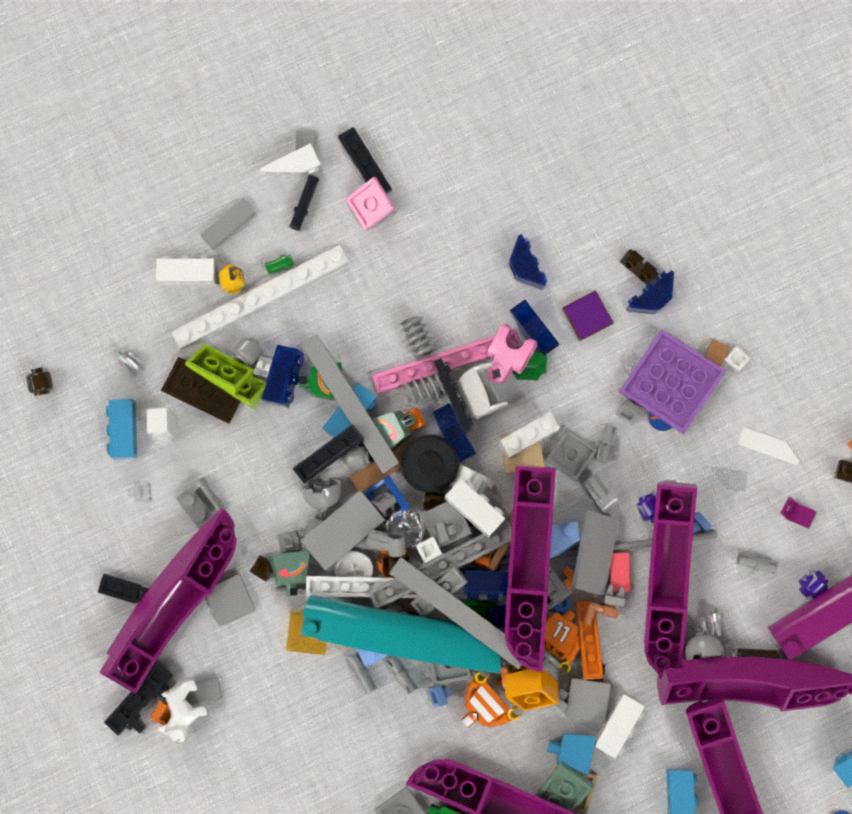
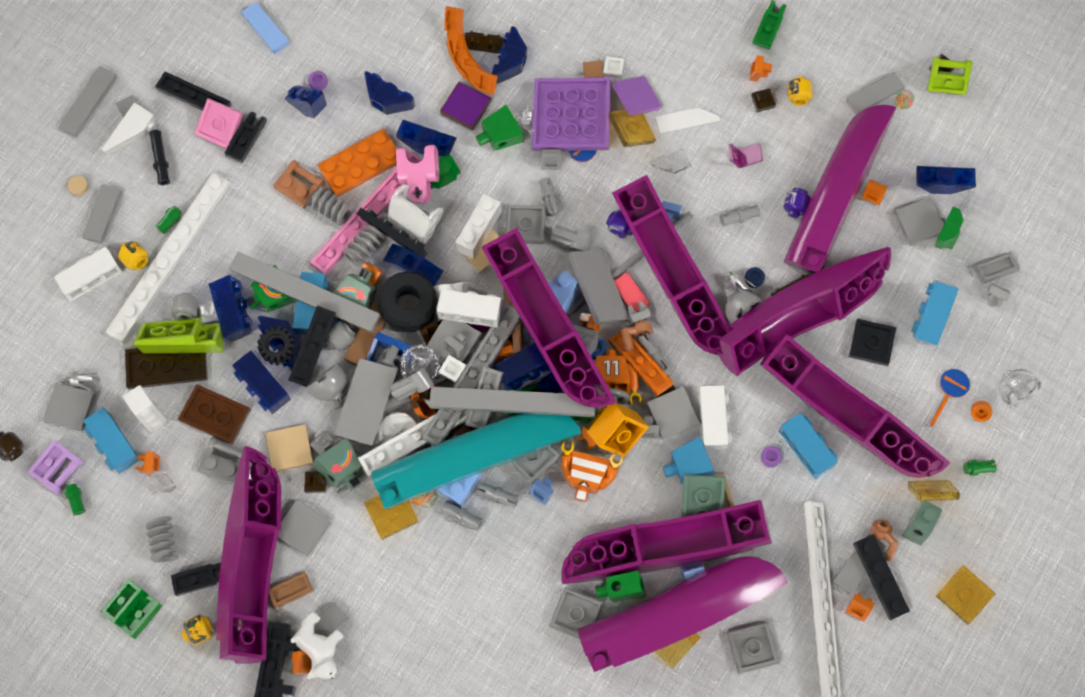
camera: 30 degrees left, 10 degrees down
(58, 579) = (131, 608): none -> green slope
(63, 417) = (50, 463): none -> lavender plate
(67, 456) = (74, 494): none -> green animal
(98, 632) = (197, 630): none -> yellow head
(106, 377) = (69, 407): none -> light grey tile
(113, 539) = (160, 540): none -> light grey piece
(141, 470) = (151, 463): none -> orange tile
(190, 645) = (290, 590): none -> medium nougat tile
(217, 458) = (214, 414): none -> reddish brown tile
(223, 186) = (78, 185): none -> tan tile
(259, 526) = (289, 448): none -> tan tile
(269, 456) = (260, 383): none -> clear blue brick
(275, 113) = (87, 101): none -> light grey tile
(295, 425) = (268, 337): none -> black tyre
(308, 430) = (277, 344): none -> clear blue slope
(384, 229) = (245, 138): none -> black hinge
(398, 300) = (295, 189): none -> nougat plate
(455, 228) = (306, 100): none -> clear blue slope
(462, 137) = (265, 27): none -> light blue tile
(467, 311) = (359, 162): none -> orange plate
(477, 214) = (317, 80): none -> medium lavender tile
(602, 357) = (500, 130): none -> green torso
(605, 636) = (653, 351): none -> light grey pin
(612, 267) = (460, 53): none -> orange tile
(645, 787) = (771, 456): none -> medium lavender tile
(716, 427) = (632, 129): none -> clear yellow tile
(734, 625) = (755, 276): none -> dark blue tile
(739, 400) = (637, 96): none -> medium lavender tile
(795, 745) = (872, 342): none -> black tile

